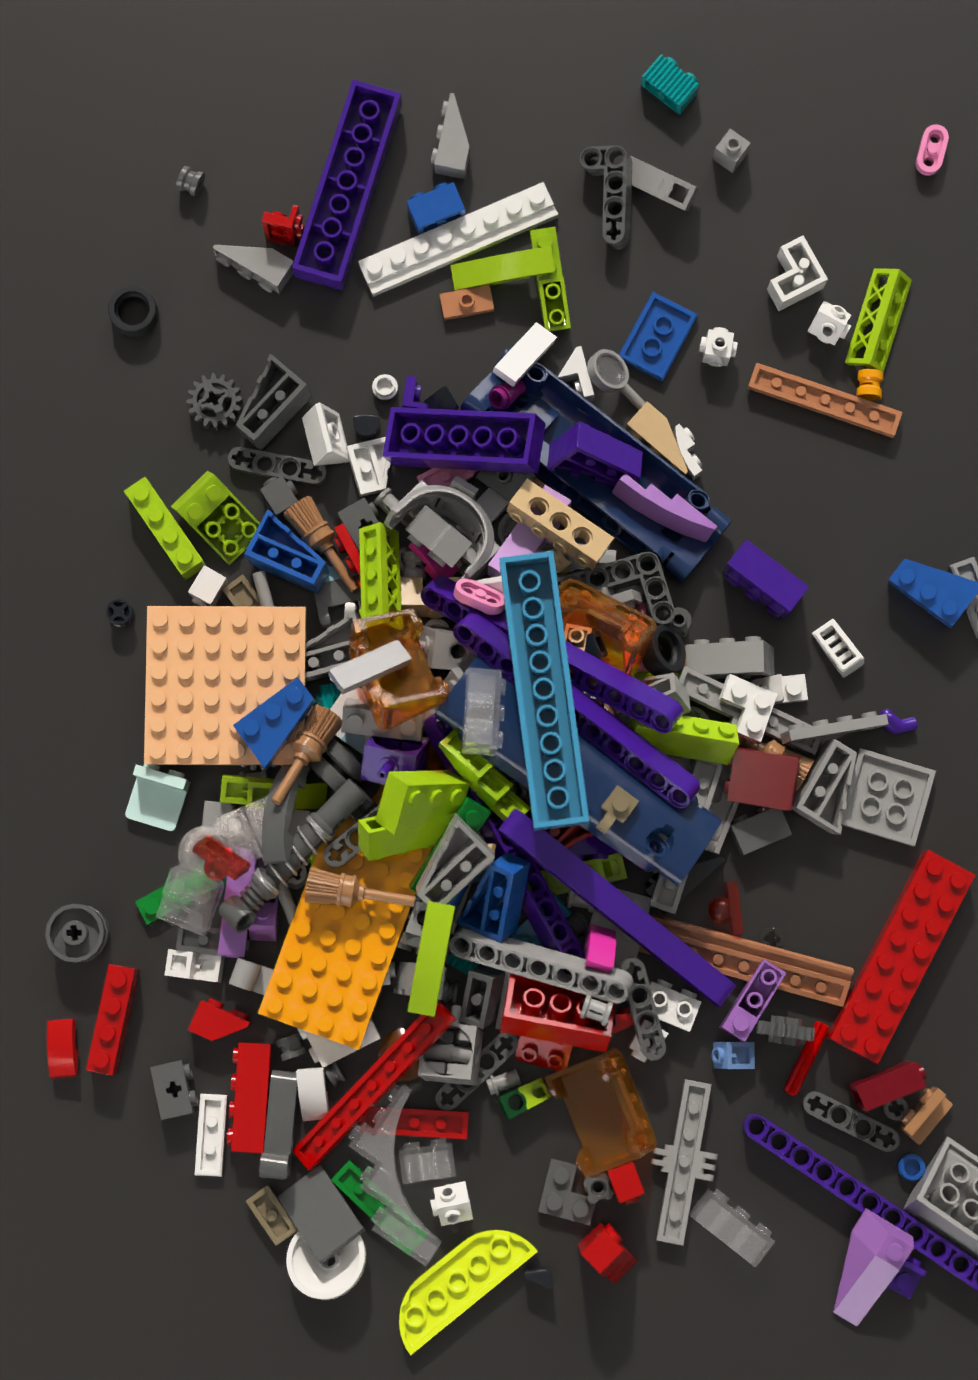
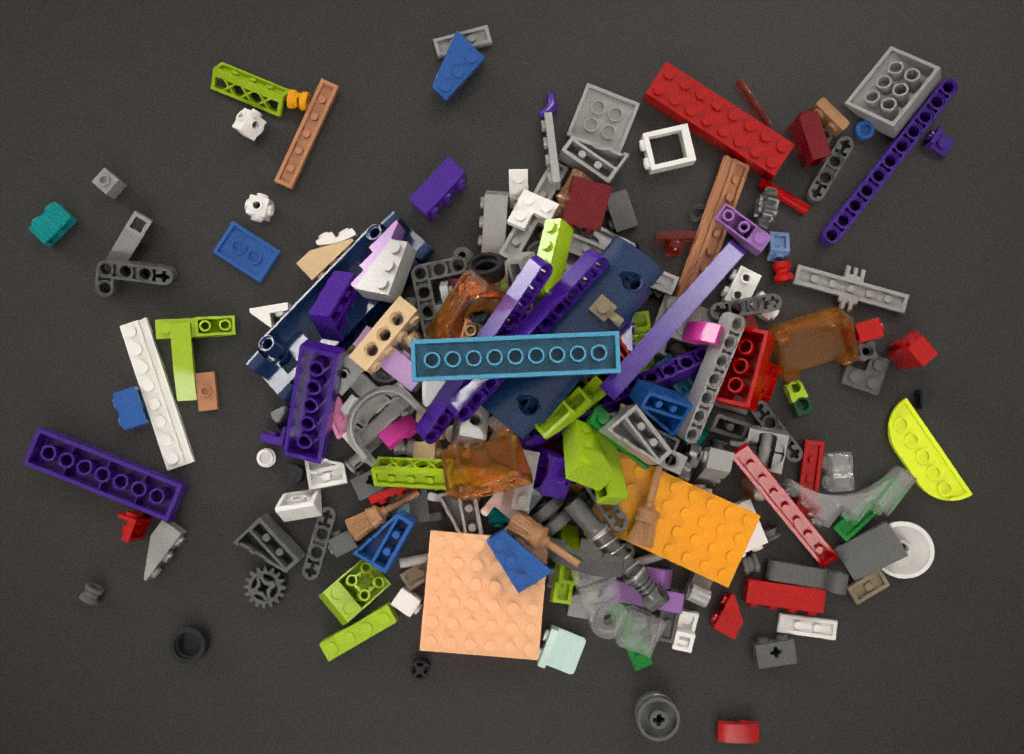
camera: 85 degrees left, 5 degrees up
(112, 1019) = (721, 693): red brick -> none
(220, 860) = (617, 608): clear red tile -> none
(312, 1093) = (785, 550): white slope -> none
(370, 666) = (483, 486): tile -> none
(431, 958) = (706, 457): lime slope -> none
(442, 539) = (386, 426): light grey brick -> none
(452, 1203) = (870, 456): white brick -> none
(453, 148) = (87, 391): light grey slope -> none
(479, 596) = (436, 399): bright pink plate -> none
(483, 711) = (526, 403): clear brick -> none
(503, 1082) = (785, 412): light grey pin -> none
(504, 394) = (281, 368): magenta cone -> none
(524, 354) = (252, 351): white tile -> none
(596, 1010) = (749, 339): light grey bush -> none
(611, 374) = (273, 288): piece -> none
(645, 522) = (388, 272): none -> wedge
(699, 1063) = (782, 271): none -> red wheel
(732, 1226) = (898, 259): clear brick -> none
(802, 274) = (209, 140): white brick -> none
(849, 667) = (494, 149): white slope -> none
(863, 915) = (686, 146): none -> white window
(871, 1263) = (933, 163): medium lavender wedge -> none
(932, 151) = (125, 36): bright pink plate -> none
(933, 1008) = (754, 103): none -> clear red bar

